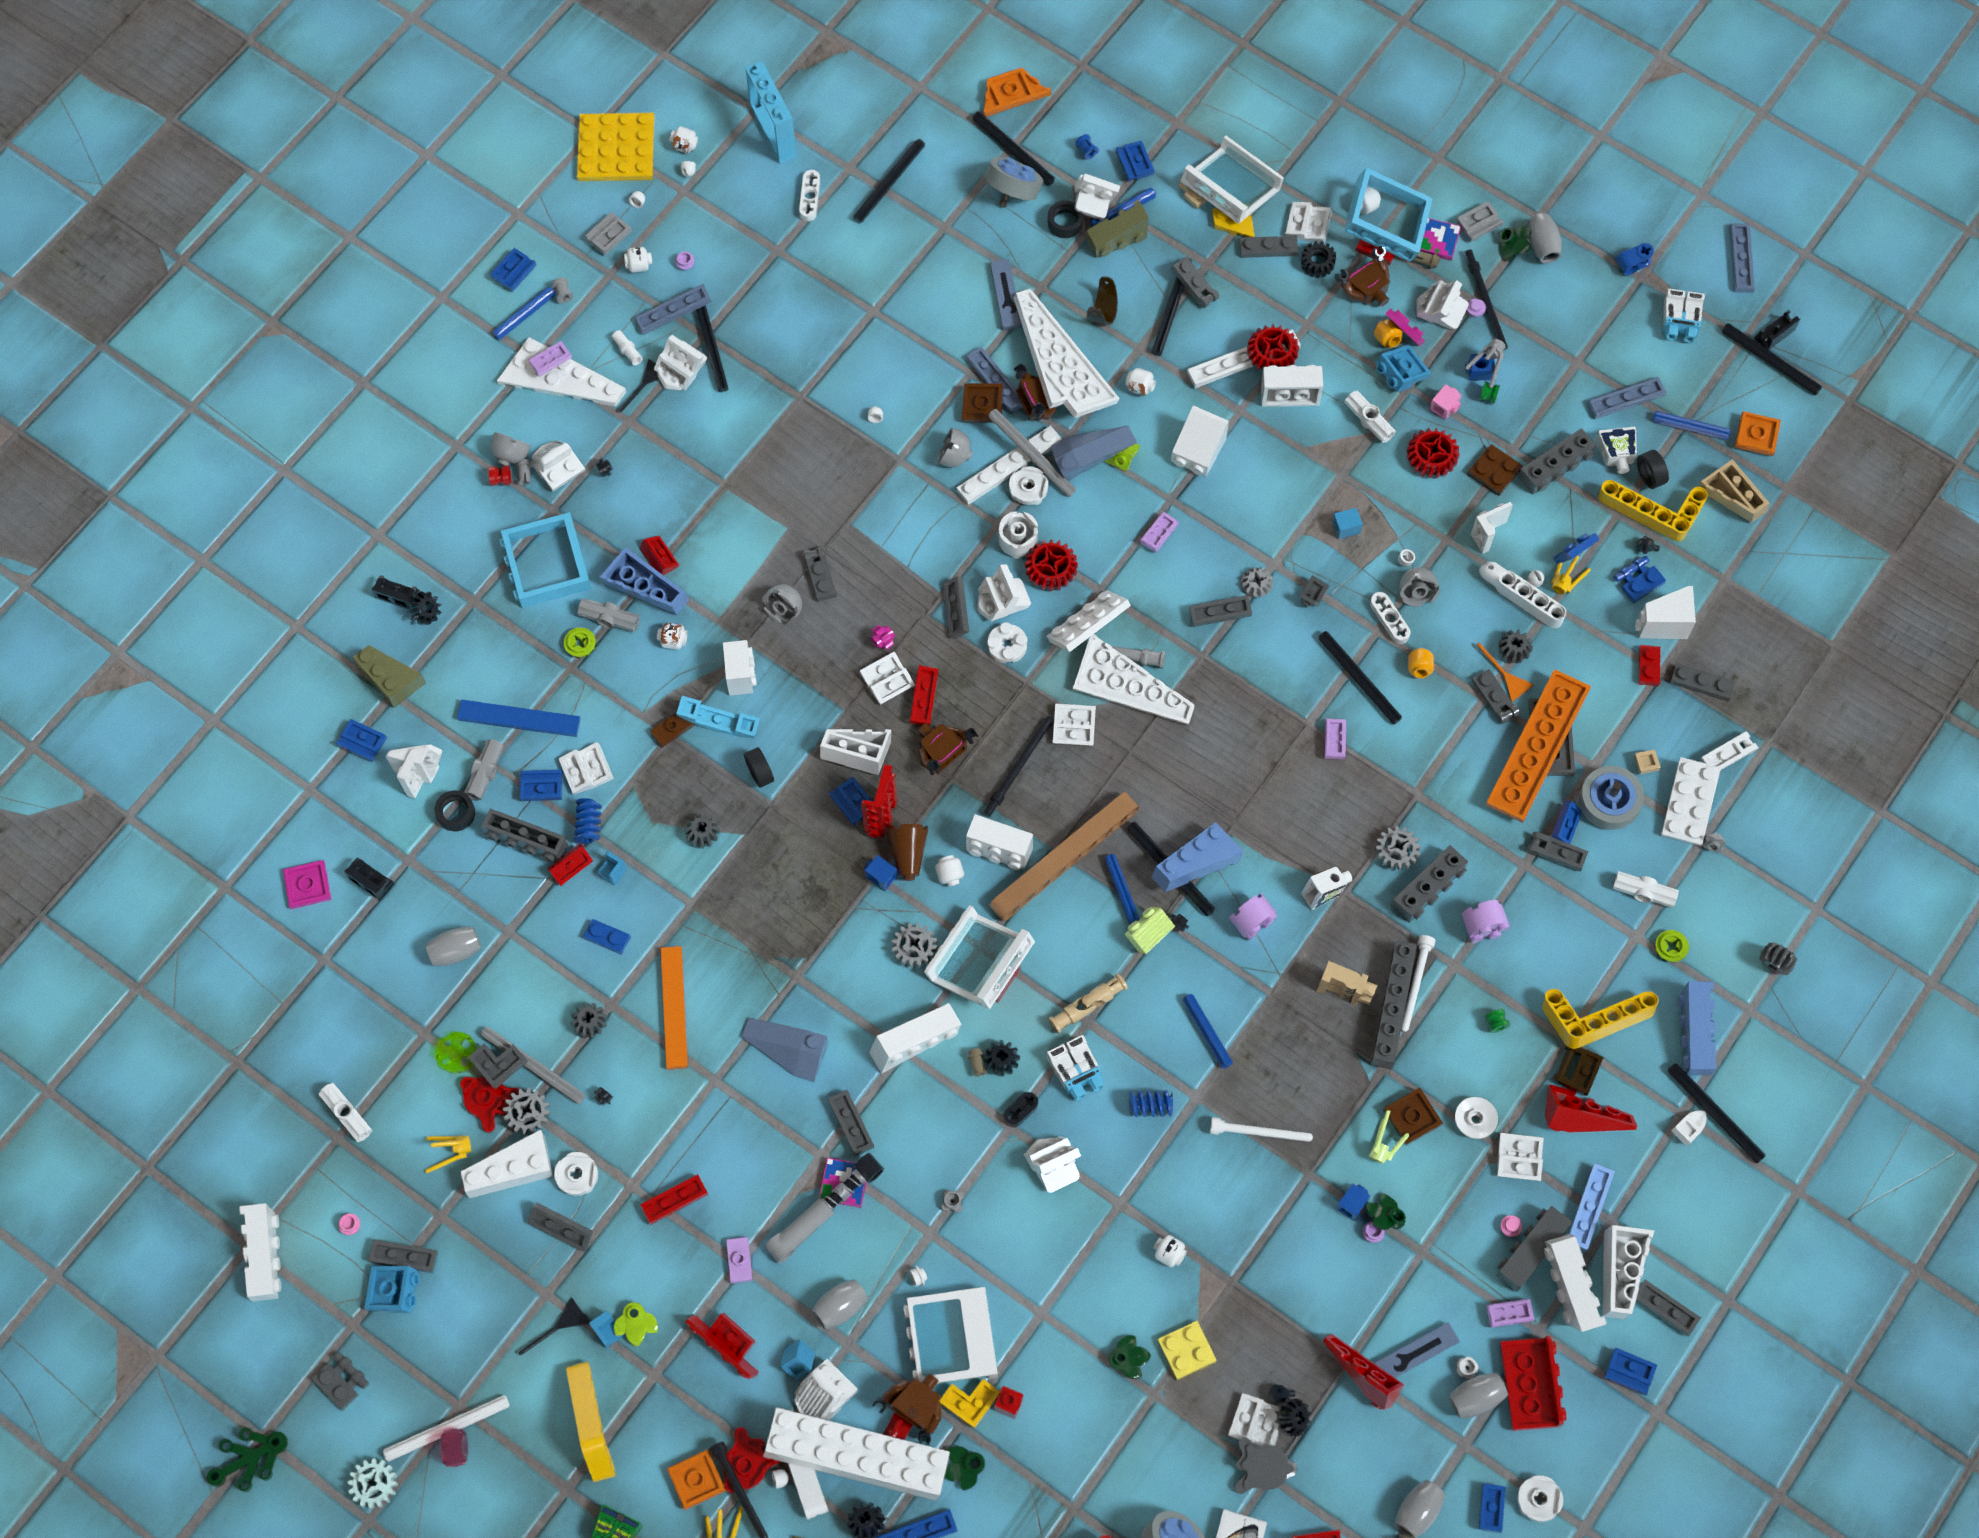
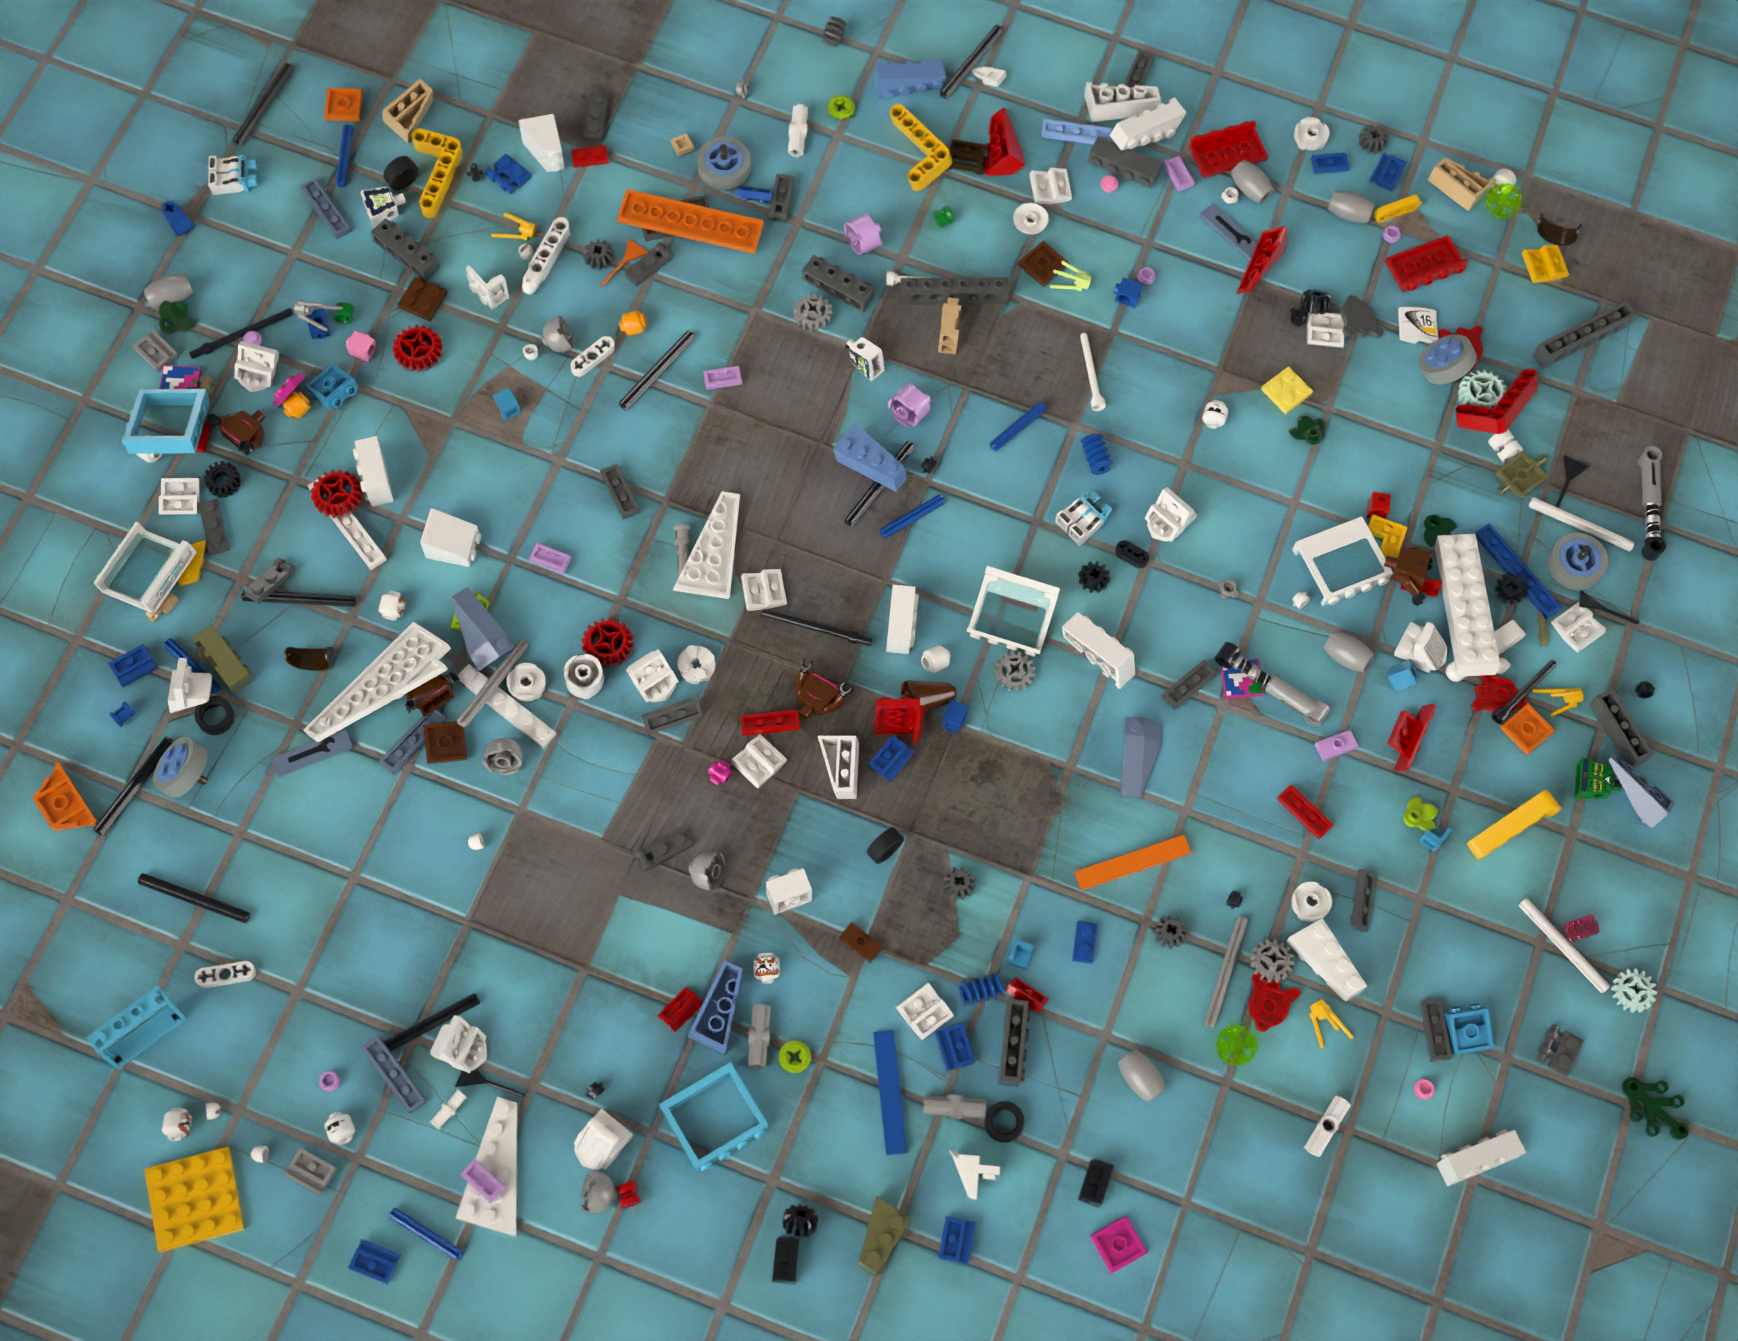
camera: 110 degrees left, 0 degrees up
(499, 1068) = (1244, 996): dark grey plate -> none
(524, 471) = (618, 1171): light grey pin -> none
(561, 287) = (391, 1199): light grey bush -> none
(571, 1317) = (1432, 871): black piece -> none
(716, 719) = (842, 899): medium azure slope -> none
(977, 1062) = (1102, 597): dark tan pin -> none
(1064, 856) = (894, 568): medium nougat beam -> none
(1088, 620) = (660, 595): white plate -> none
(1097, 997) = (1014, 514): tan piece -> none
(1149, 929) = (945, 484): yellowish green brick -> none
(1251, 587) = (578, 475): light grey gear -> none
(1314, 592) = (583, 419): dark grey bracket -> none
(1362, 409) = (395, 397): white piece -> none
(1386, 1213) = (1129, 268): dark green plate -> none
(1574, 549) = (494, 219): blue plate -> none
(1630, 1371) = (1194, 89): blue plate -> none
(1690, 801) = (710, 109): white plate -> none
(1730, 752) = (659, 88): white plate -> none
(1742, 257) = (158, 139): sand blue tile -> none
(1777, 330) = (233, 101): black hinge -> none

